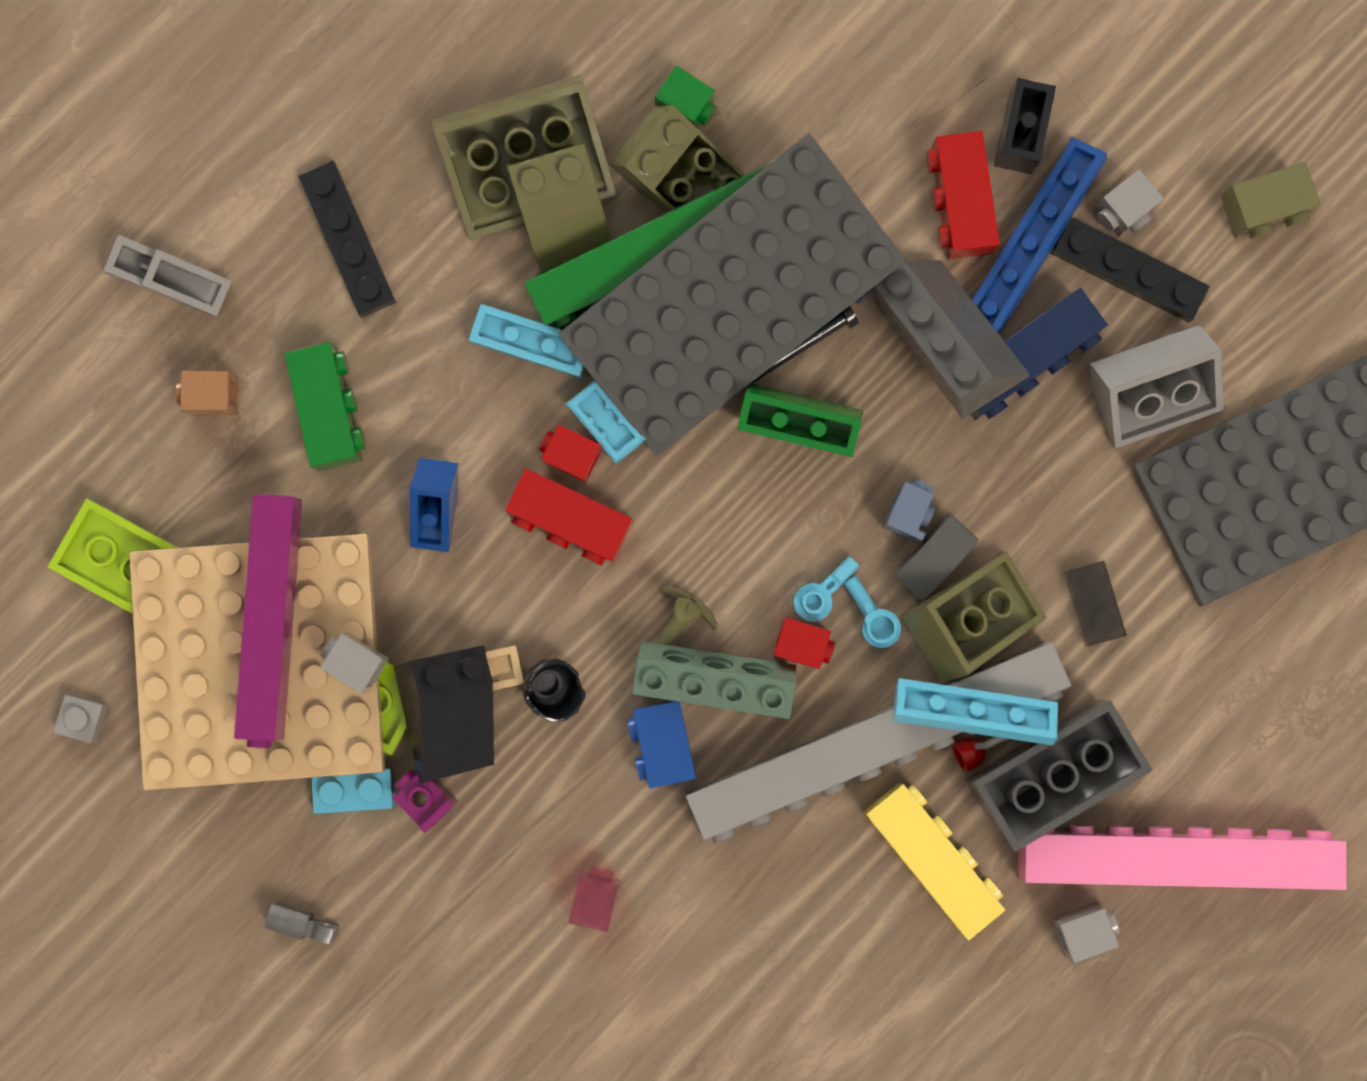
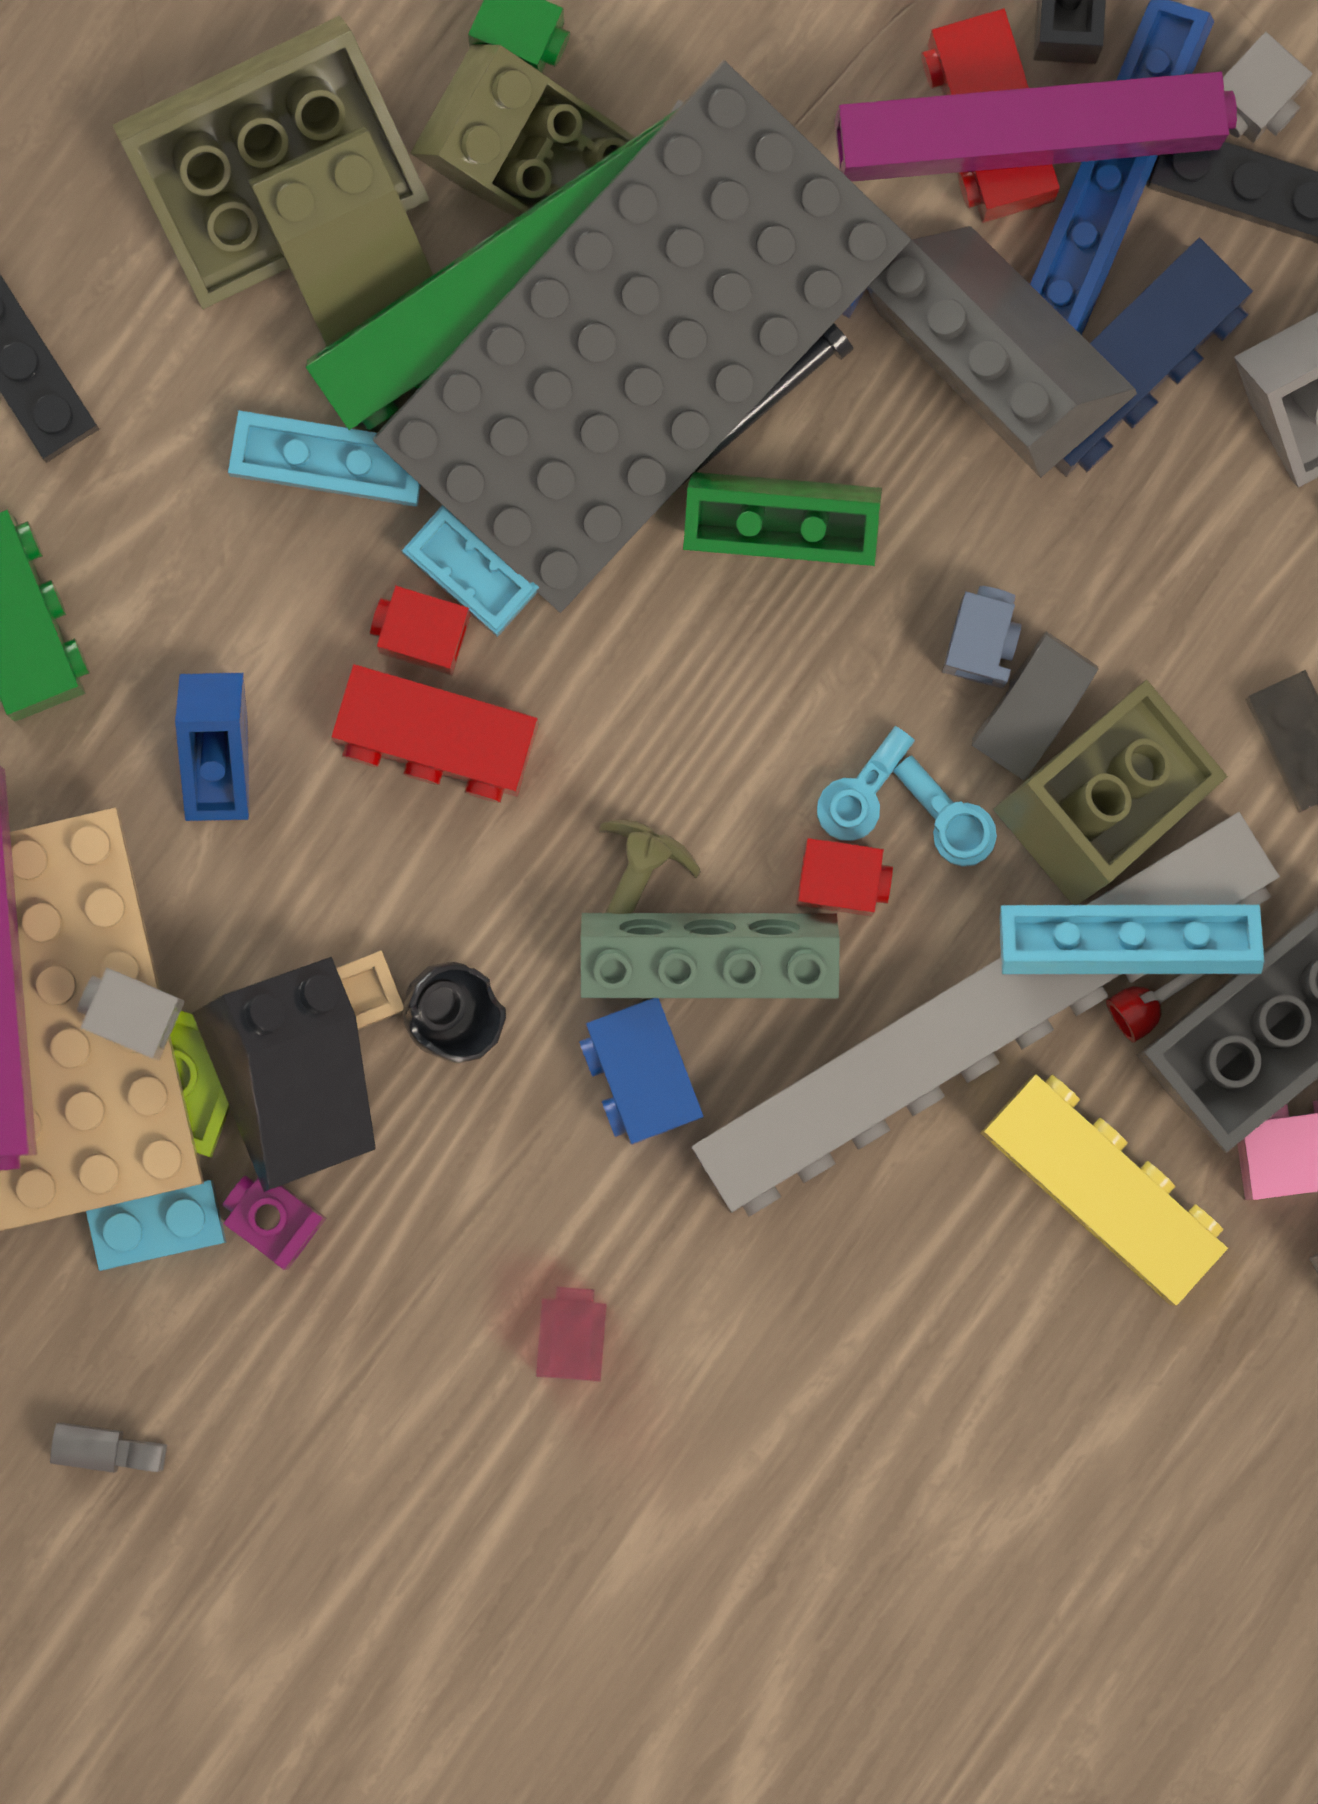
camera: 10 degrees left, 0 degrees up
(991, 203) = (1034, 126): none -> magenta brick

